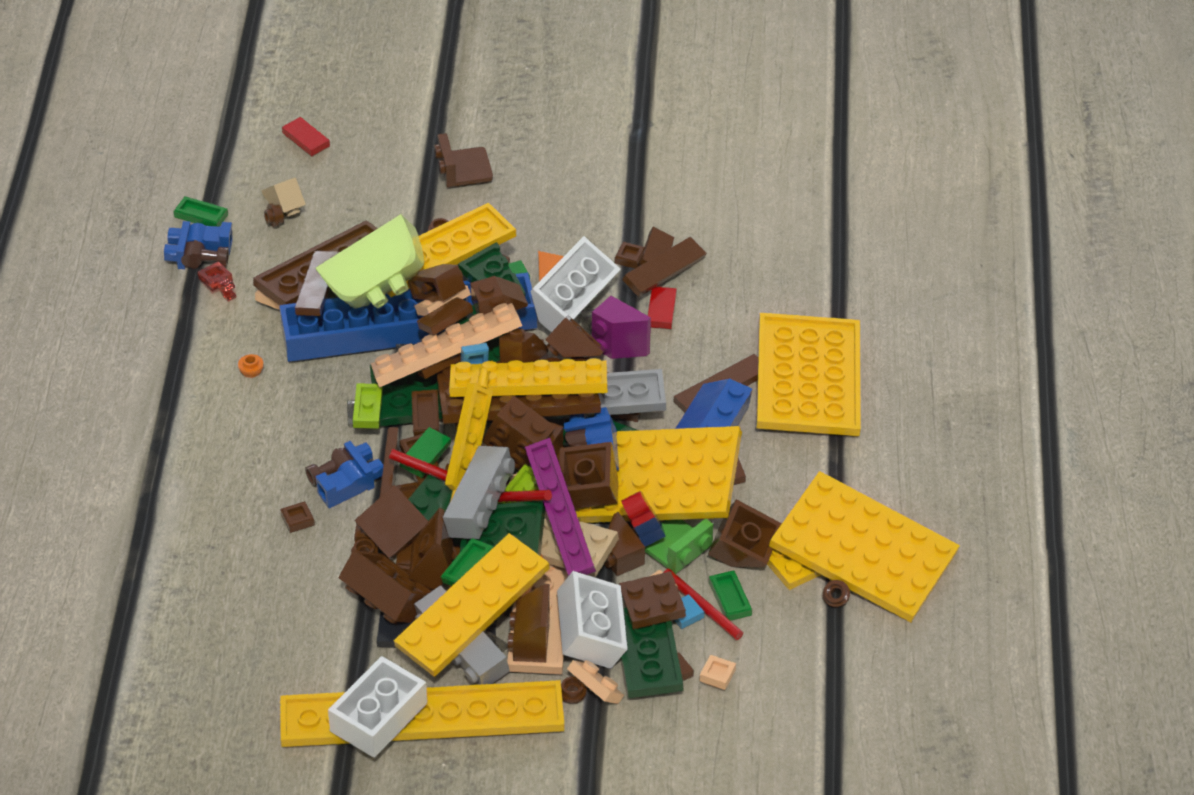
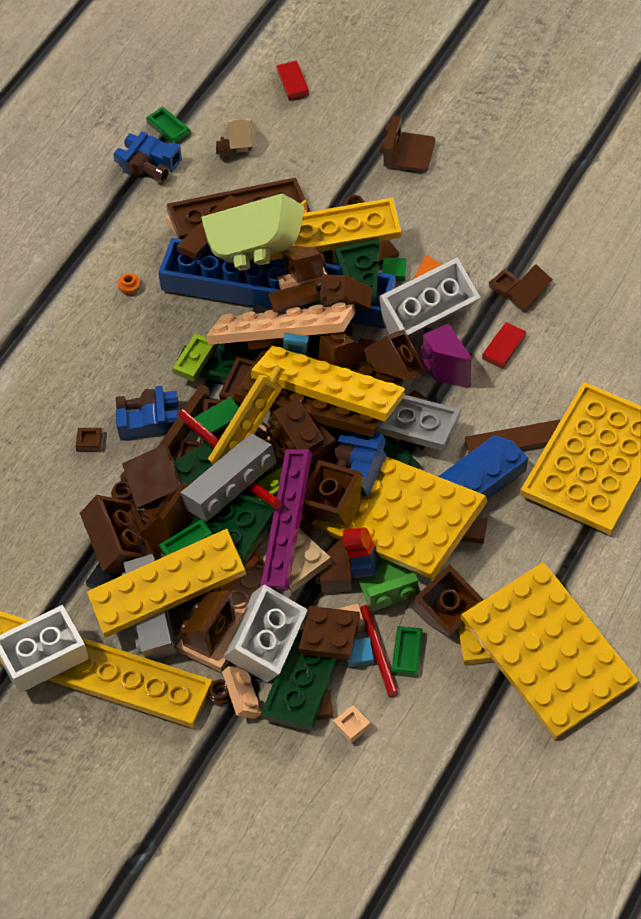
camera: 30 degrees right, 10 degrees up
(218, 277) = (145, 192): clear red plate -> none
(664, 266) = (525, 306): reddish brown tile -> none
(831, 587) = (492, 686): reddish brown plate -> none

